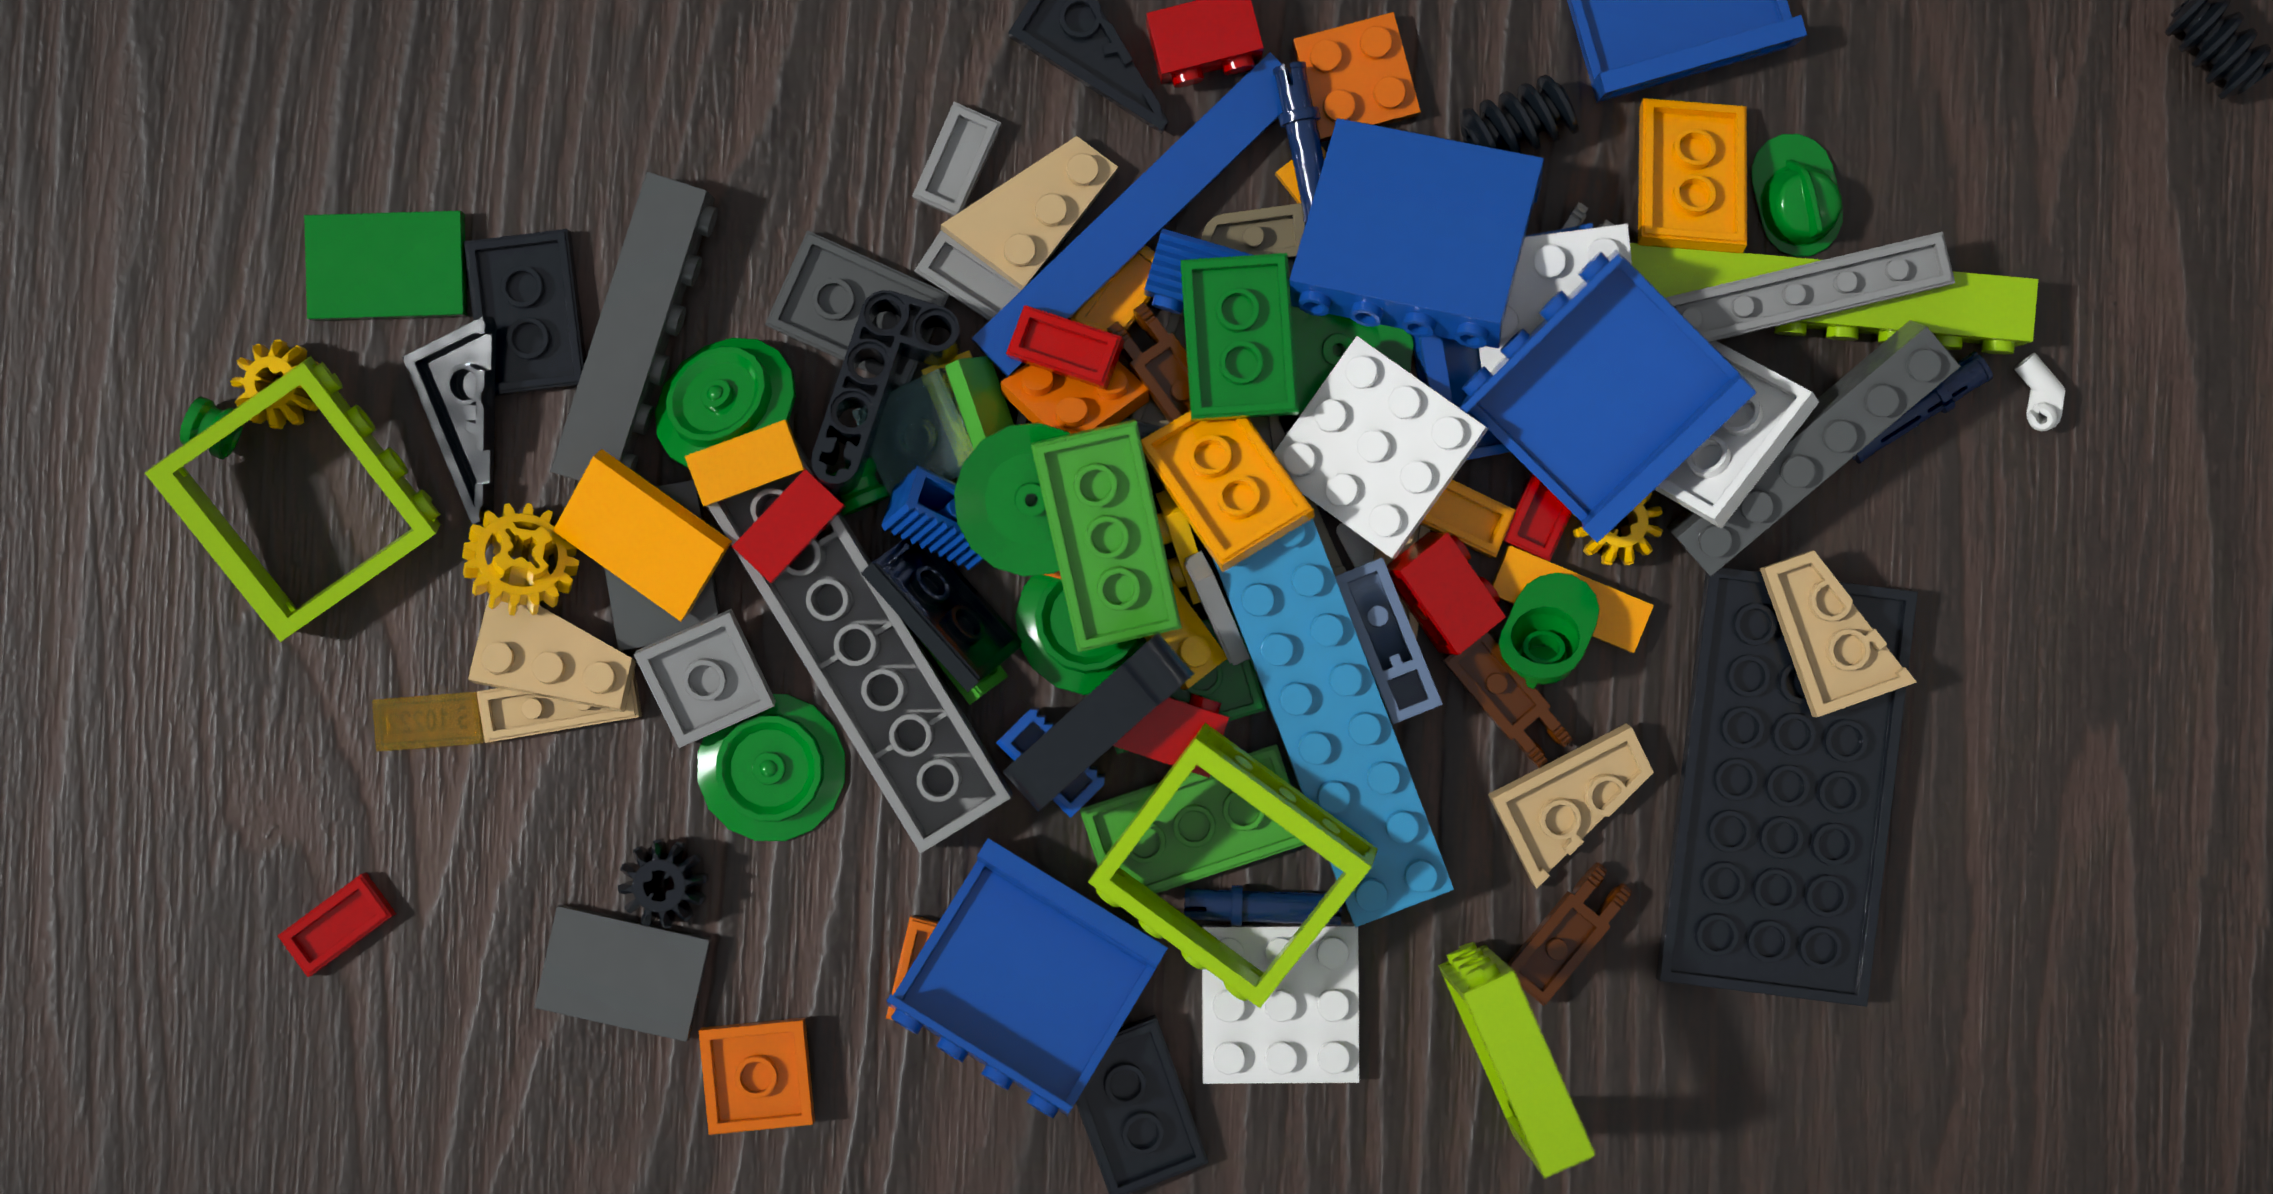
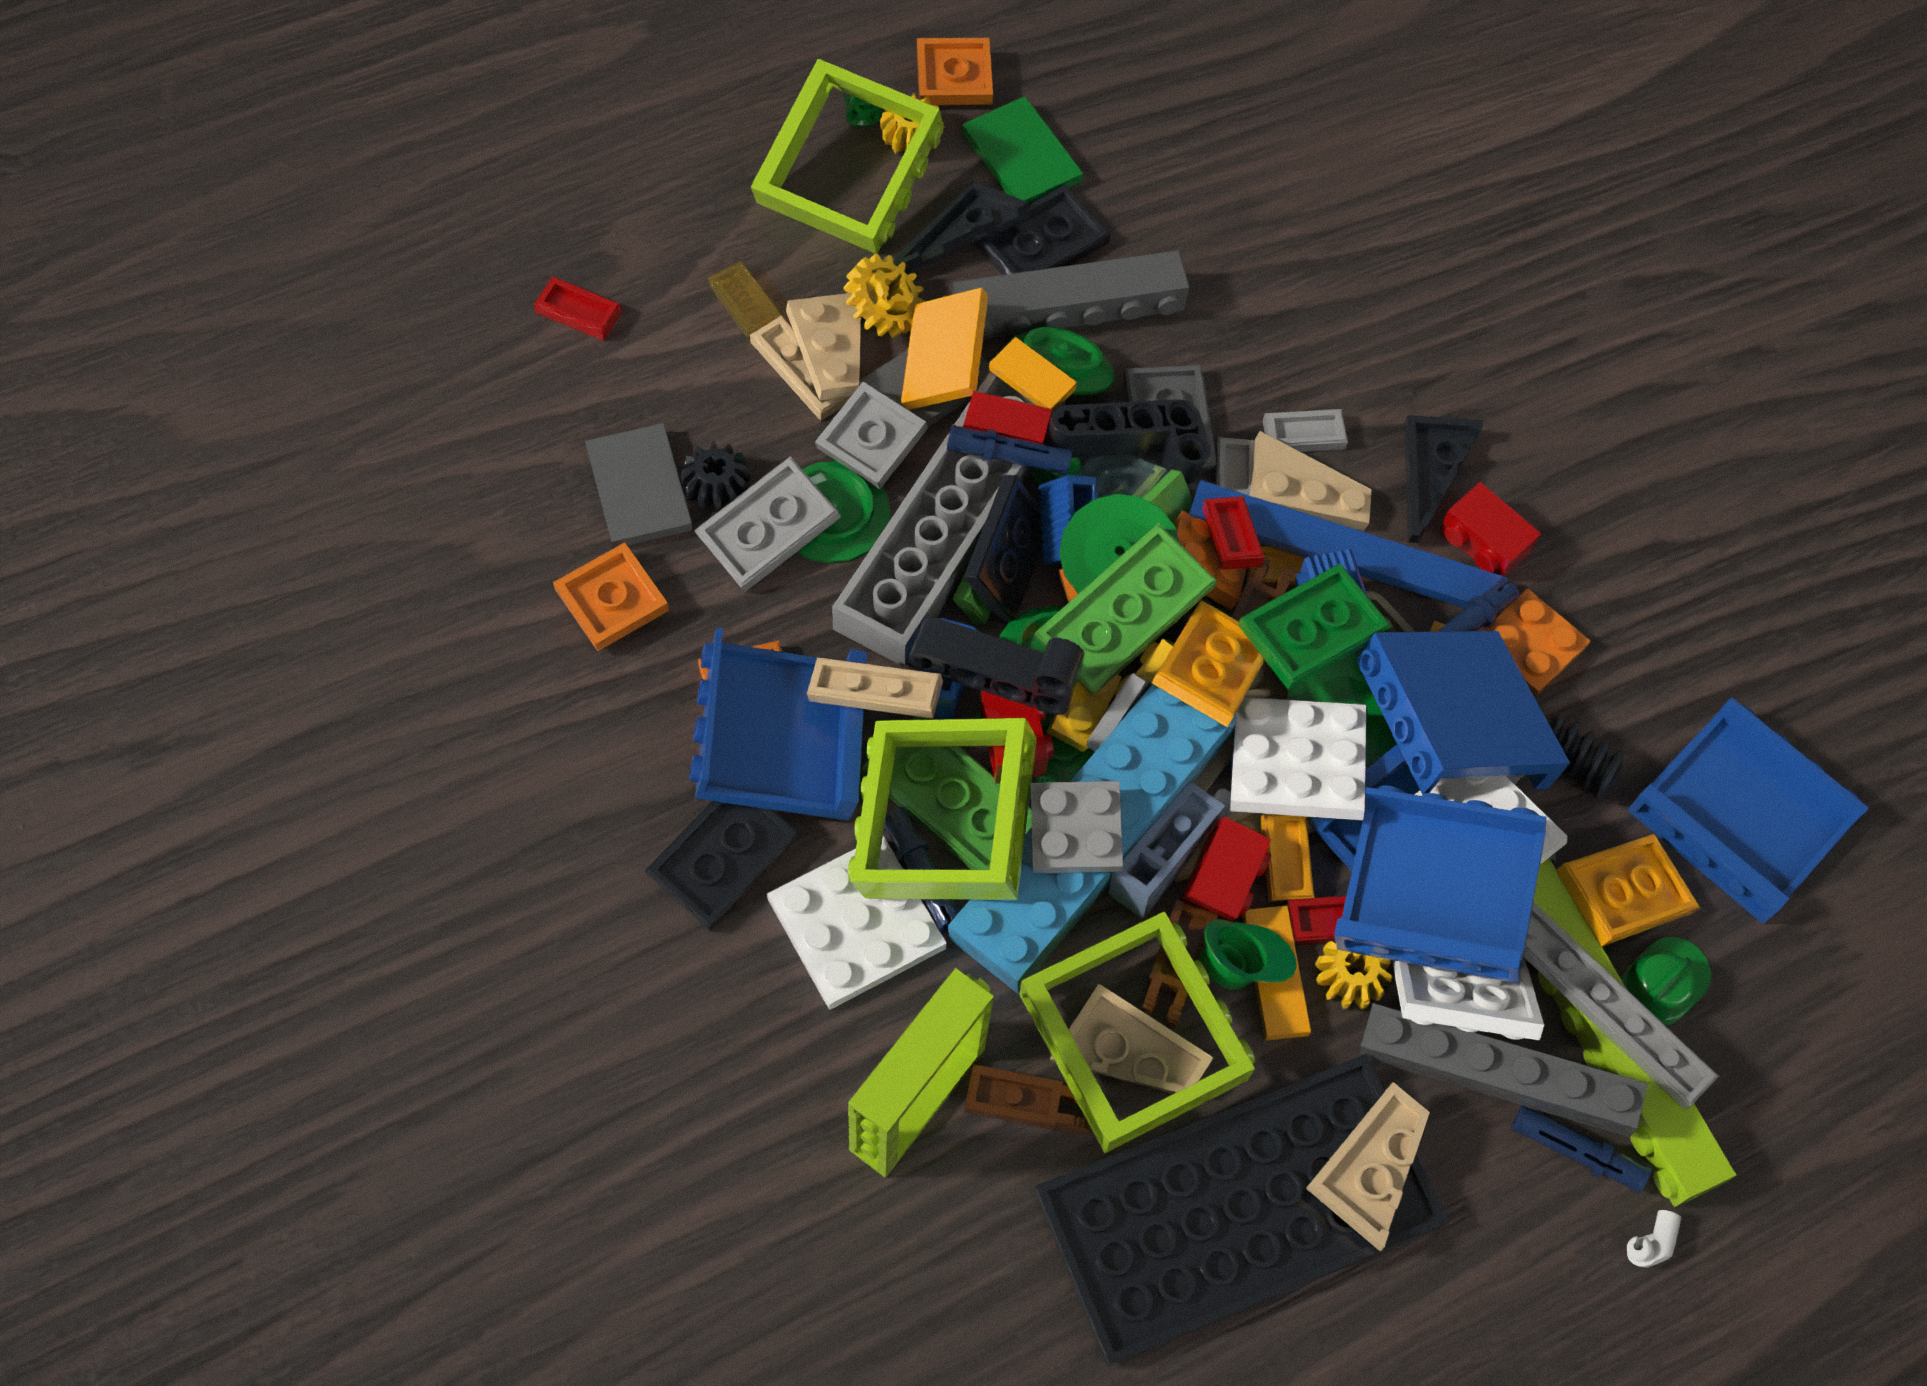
camera: 60 degrees right, 25 degrees down
(218, 282) = (955, 71): none -> orange plate
(757, 856) = (767, 524): none -> light grey tile
(790, 599) = (1016, 451): none -> dark blue pin
(1045, 860) = (875, 687): none -> tan tile
(1334, 743) = (1076, 827): none -> light grey plate
(1561, 880) = (1073, 1065): none -> lime window

